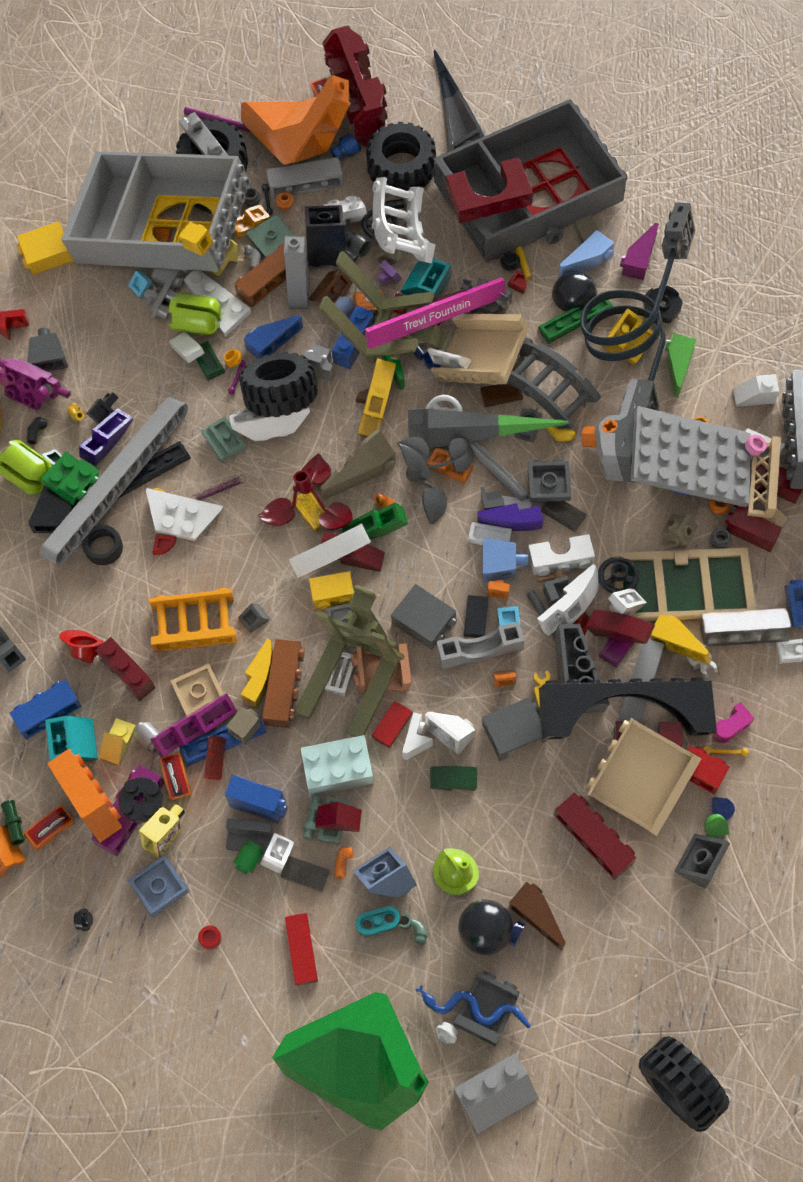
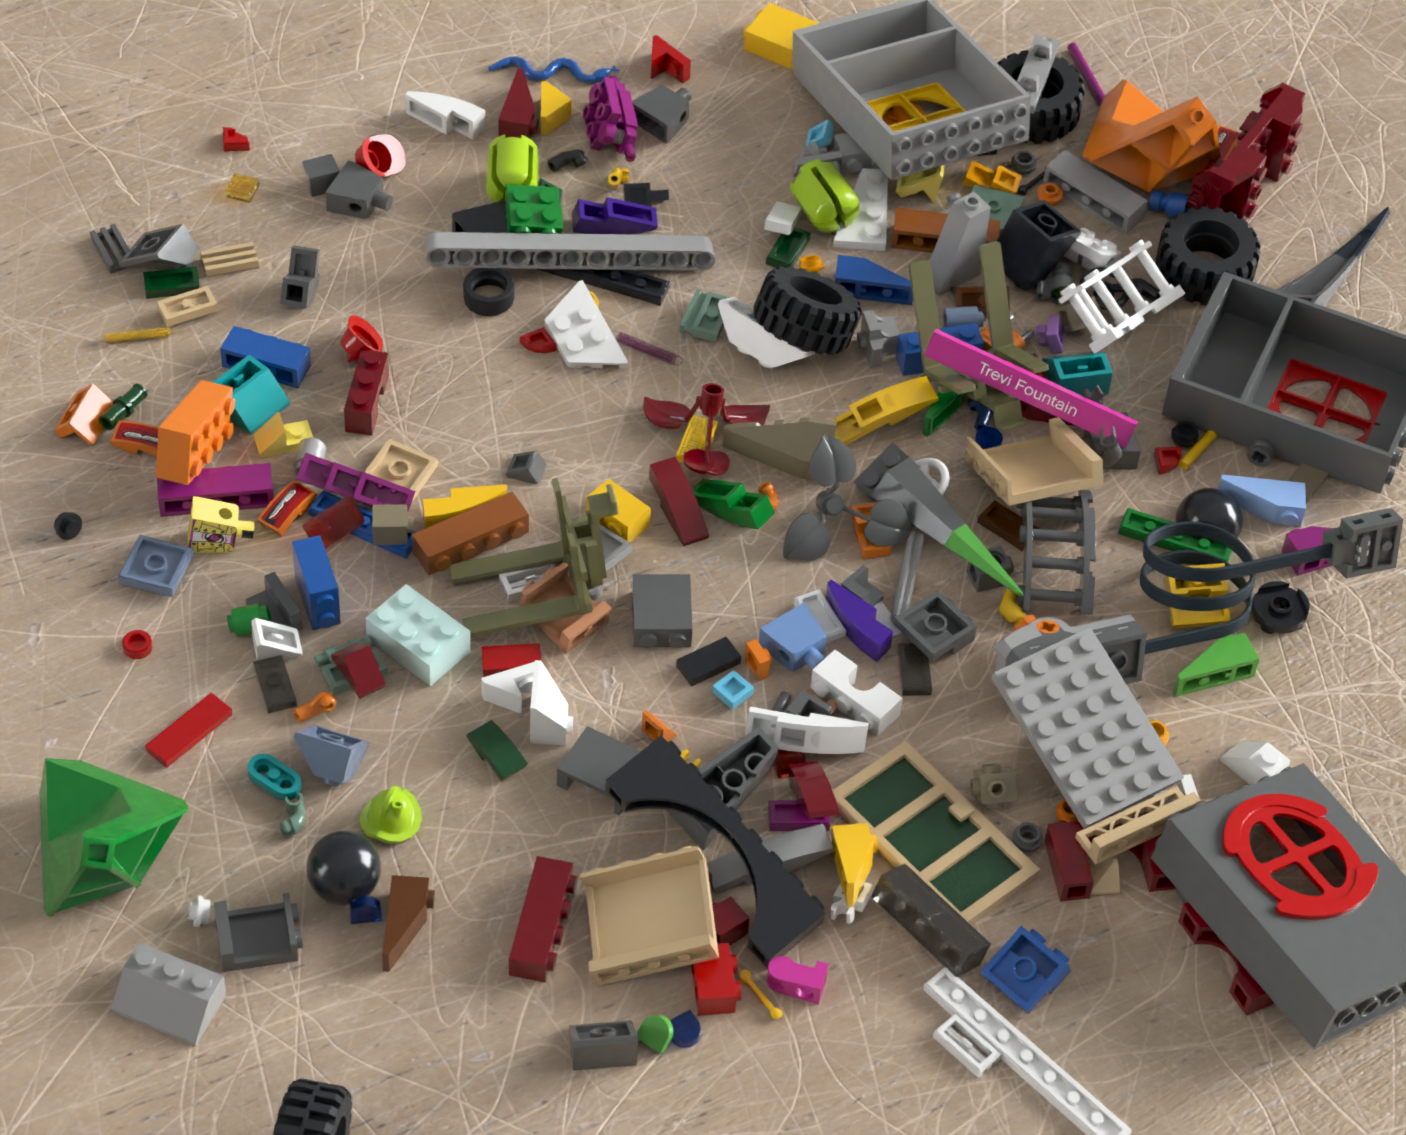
camera: 45 degrees right, 15 degrees down
(132, 790) = (232, 471): black plate -> none
(196, 238) = (889, 117): yellow brick -> none
(200, 638) = (464, 436): light orange fence -> none
(330, 551) = (660, 475): white slope -> none
(430, 1002) = (256, 943): blue animal -> none
(449, 359) = (994, 443): white slope -> none
(460, 651) = (645, 662): light grey arch -> none
(472, 206) = (1249, 363): dark red arch -> none
(618, 566) = (882, 752): black piece -> none
(626, 602) = (850, 781): white slope -> none
(755, 445) = (1169, 786): bright pink tile -> none

